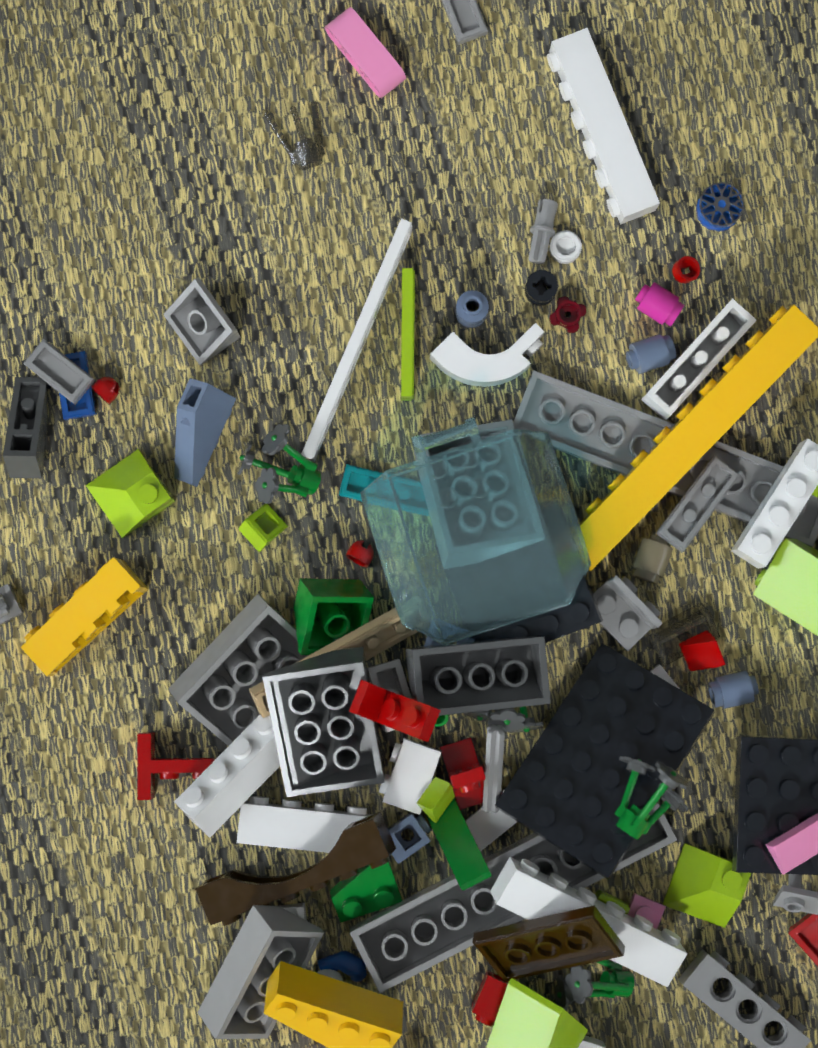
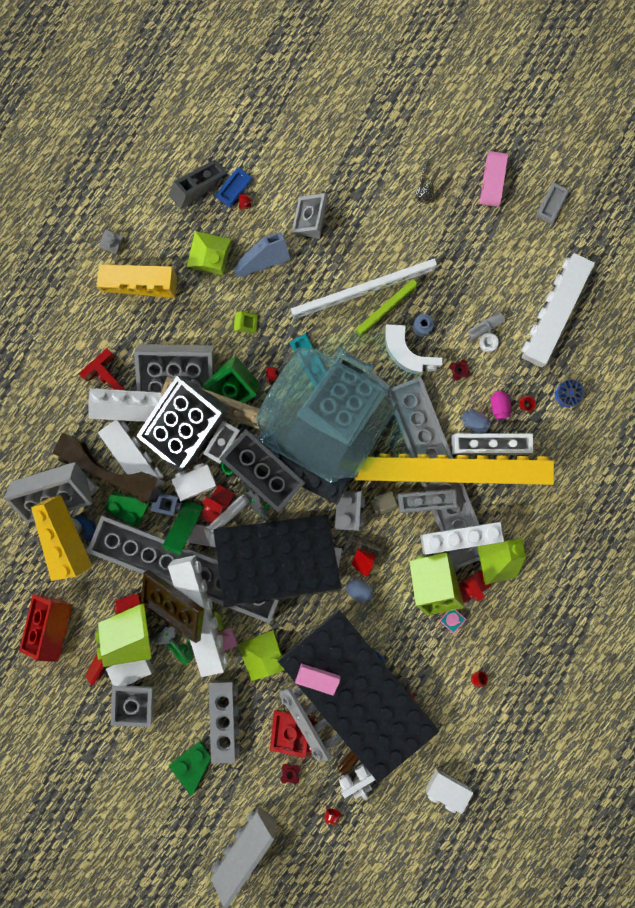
camera: 55 degrees right, 0 degrees up
(59, 371) = (233, 174): light grey tile -> none
(303, 478) = (282, 320): plant -> none
(394, 711) = (212, 445): red bracket -> none
(436, 798) = (193, 502): lime slope -> none
(540, 294) = (457, 349): black wheel -> none
(638, 821) = (259, 594): plant -> none

